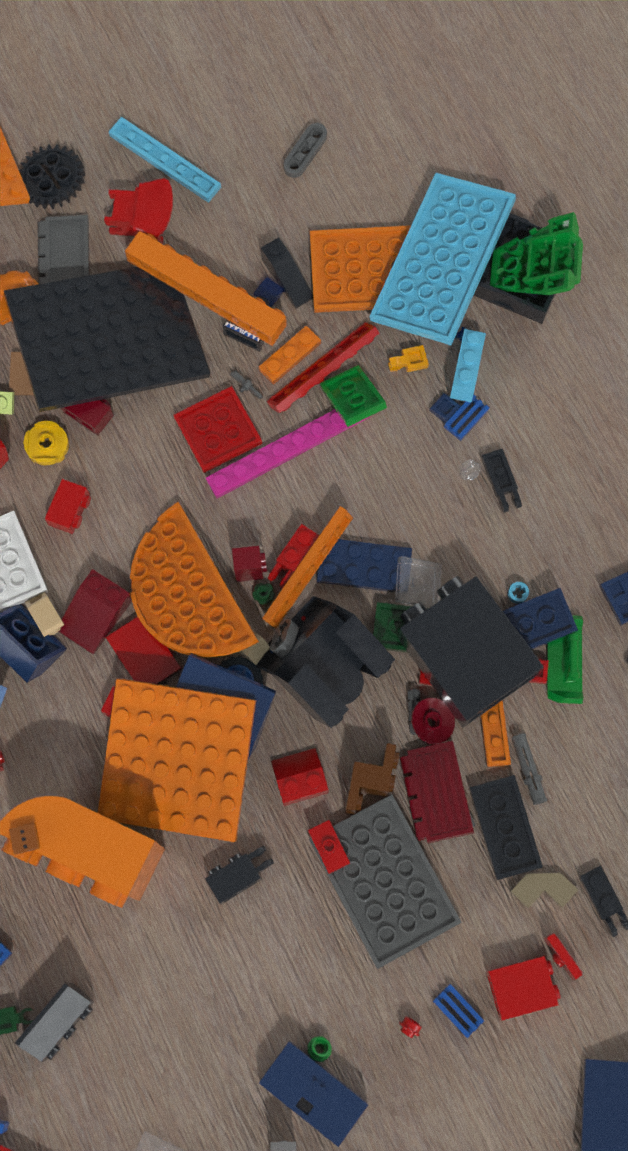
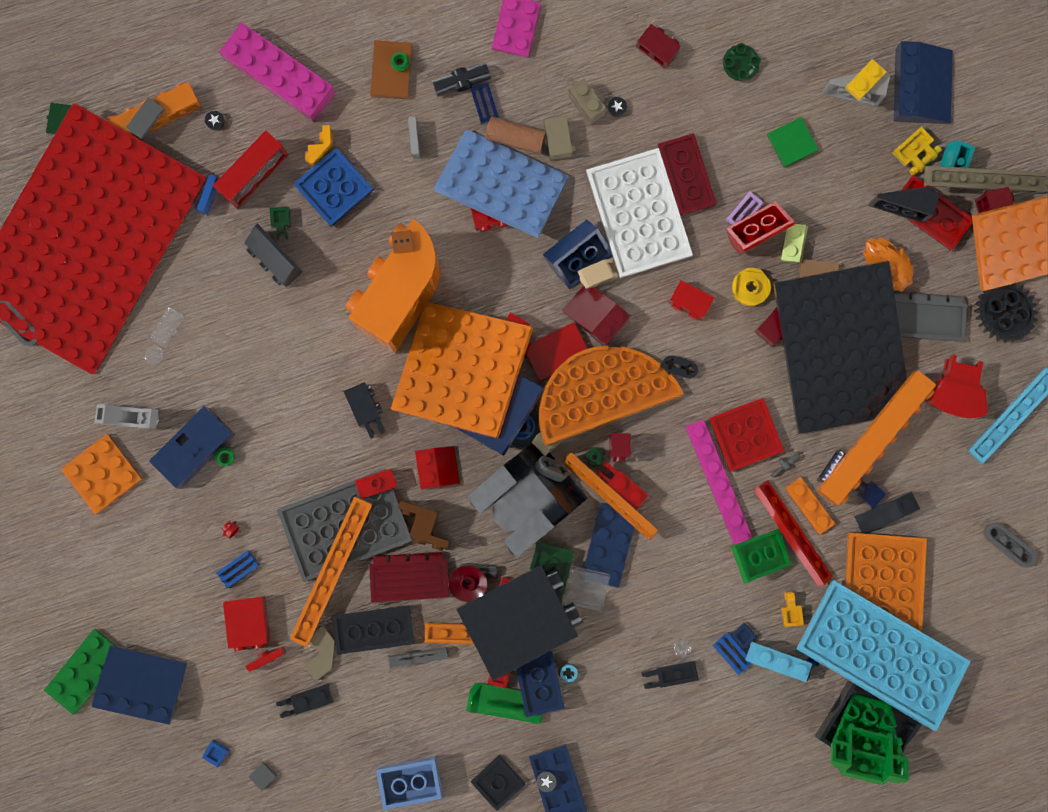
camera: 100 degrees right, 10 degrees up
(142, 511) = (678, 371): none -> black beam
(444, 887) = (331, 571): none -> orange plate

